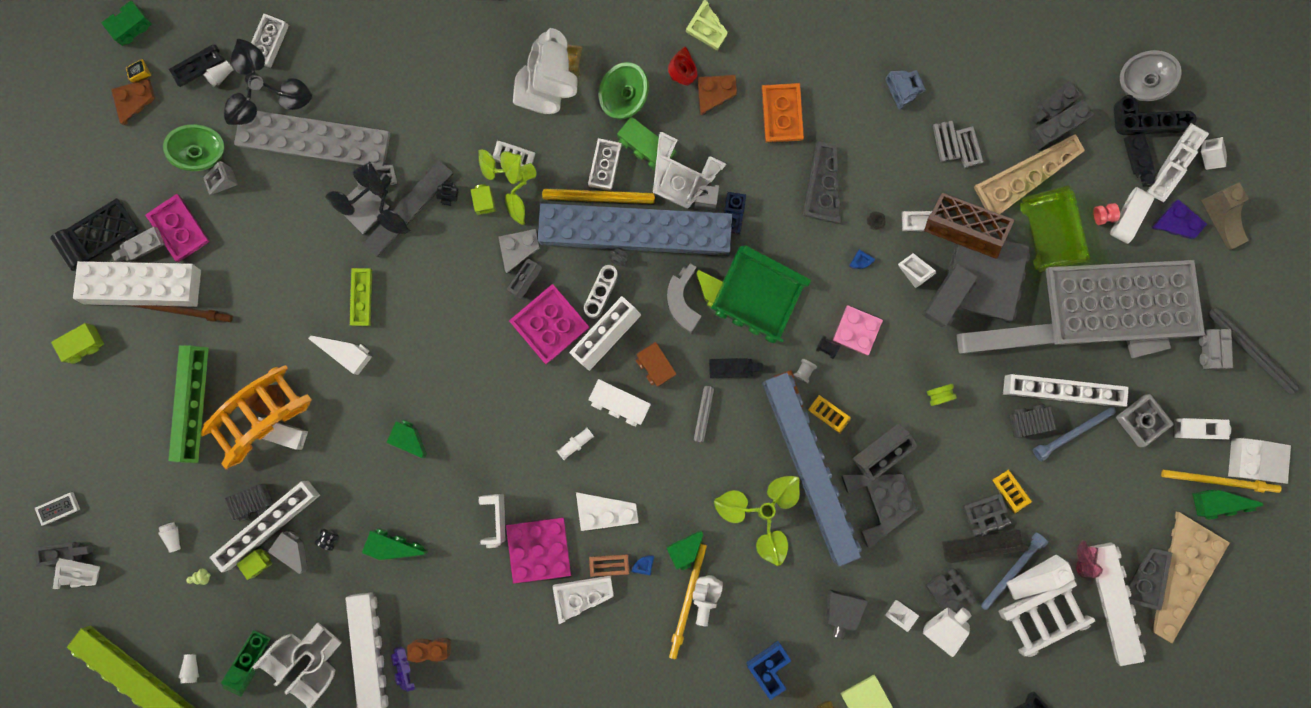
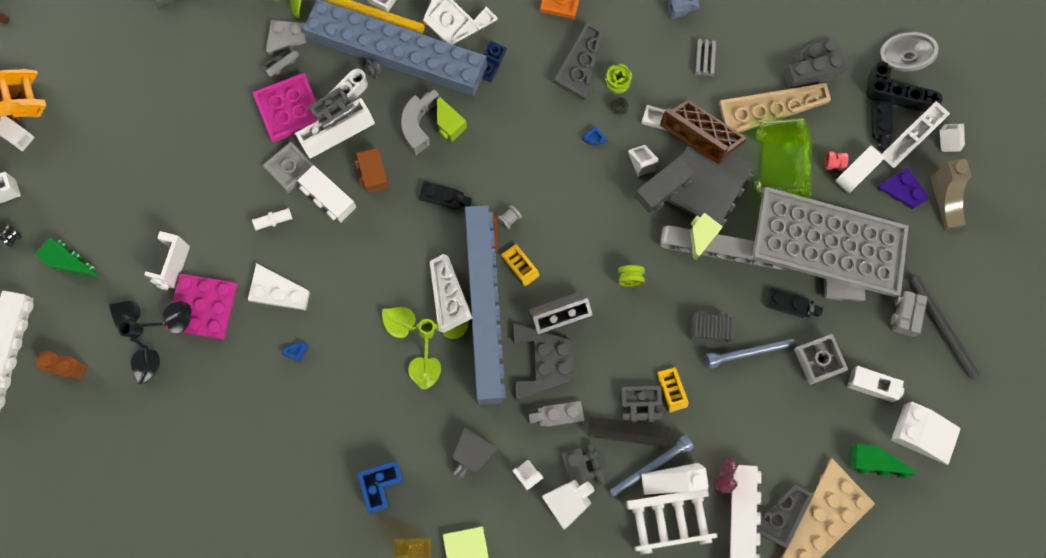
camera: 10 degrees right, 10 degrees down
(347, 354) = (95, 77): white slope -> none
(360, 297) = (128, 35): lime plate -> none
(402, 677) = (25, 383): dark purple wing -> none
(407, 438) = (120, 167): green slope -> none
(505, 622) = (126, 313): none -> black plant
(571, 384) = (288, 166): none -> light grey tile
(577, 596) = (223, 360): white wing -> none
(595, 313) = (329, 104): none -> dark grey plate
(606, 565) = (278, 345): nougat tile -> none
(678, 637) = (302, 430): yellow bar -> none
(685, 550) = (339, 347): green slope -> none
(703, 414) = (401, 229): light grey axle -> none
(705, 597) = (343, 396): white piece -> none
(708, 200) = (471, 39): light grey hinge -> none
(759, 294) = (489, 134): green panel -> none
(774, 470) = (448, 296): none -> white wing
(828, 347) = (538, 202): black bush -> none
(857, 330) = (571, 197): bright pink plate -> none
(861, 197) = (623, 83): none -> lime wheel
(911, 549) = (558, 414): none -> light grey hinge
(968, 148) = (724, 81): light grey tile -> none
(1001, 335) = (702, 233): none -> yellowish green slope
(1065, 390) = (751, 307): white brick -> none
(1102, 372) = (792, 304): none -> black hinge
(1257, 486) = (917, 457): yellow bar -> none

